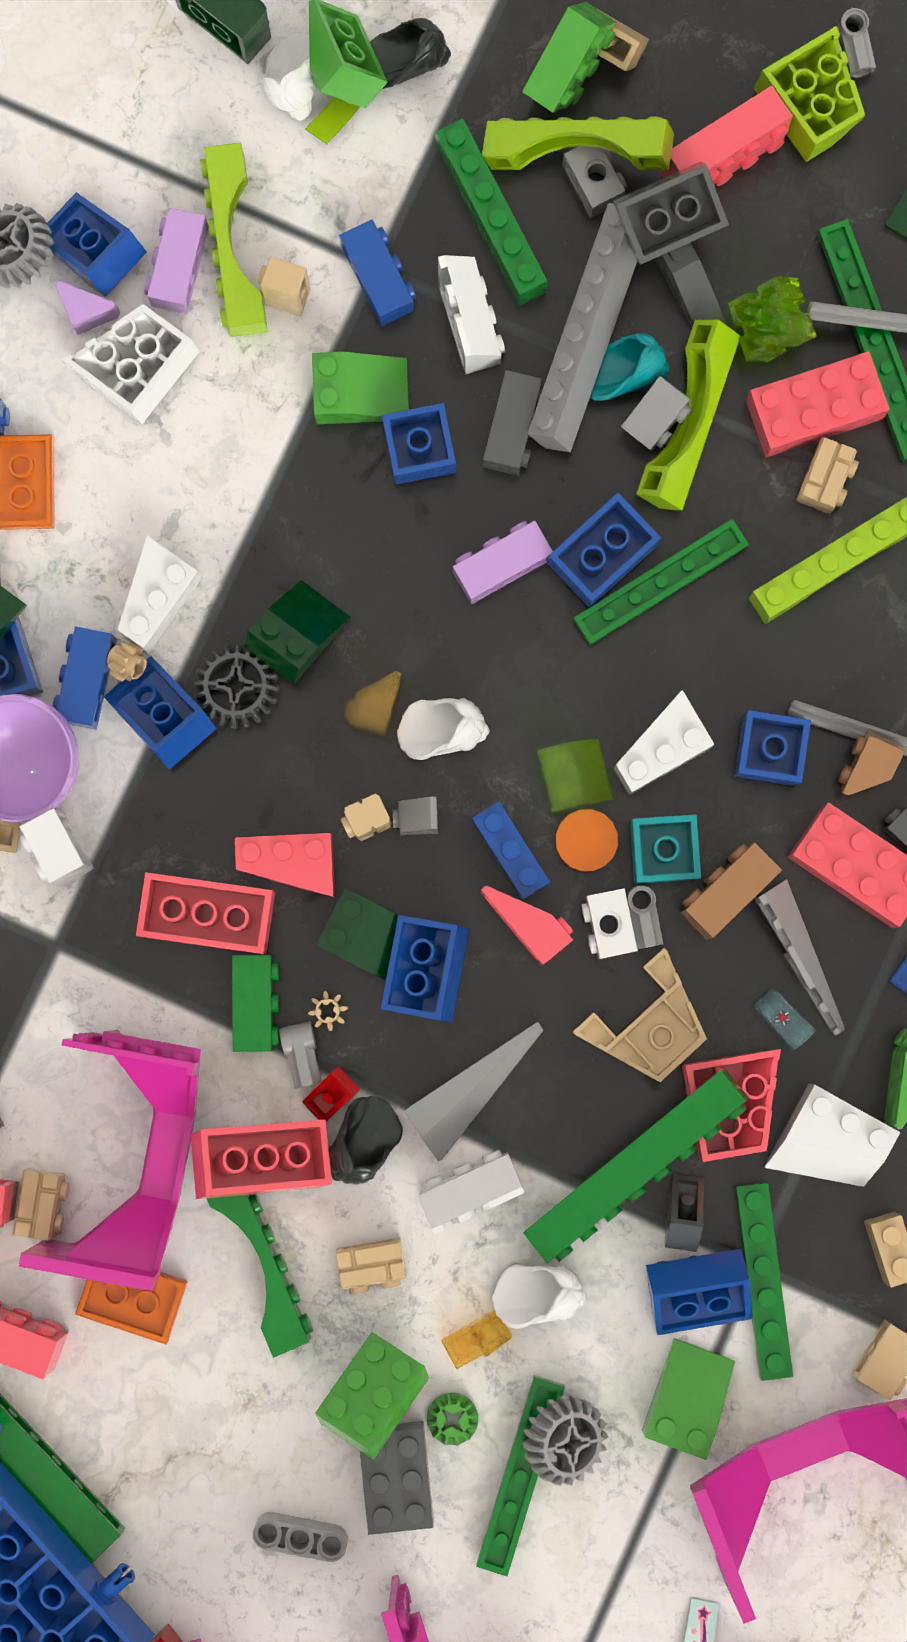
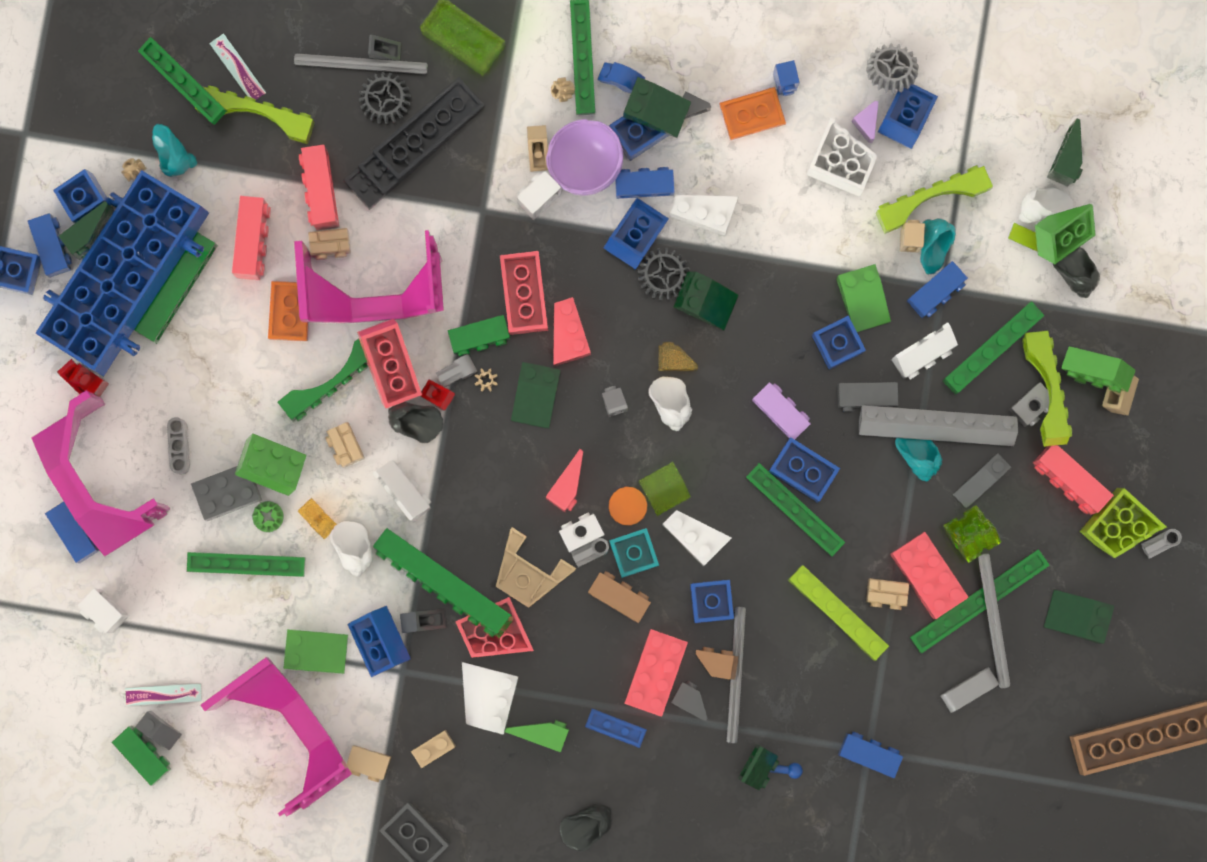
camera: 70 degrees right, 0 degrees up
(126, 661) = (660, 205): tan gear -> none
(176, 260) = (911, 168): lavender brick -> none
(298, 244) = (938, 239): none -> teal hair
(366, 818) = (604, 371): tan brick -> none
(425, 968) = (525, 430): blue slope -> none
(453, 1106) = (447, 467): light grey wedge -> none
(510, 851) = (608, 462): blue brick -> none
(556, 1432) = (285, 577): light grey gear -> none
(657, 414) = (896, 480): light grey brick -> none
(671, 212) = (1015, 454): dark grey brick -> none
(708, 363) = (941, 502): lime arch -> none
(765, 1281) = (395, 678): green plate -> none
(784, 1019) = (552, 650): clear light blue leg -> none
(786, 921) = (604, 641): light grey wedge -> none

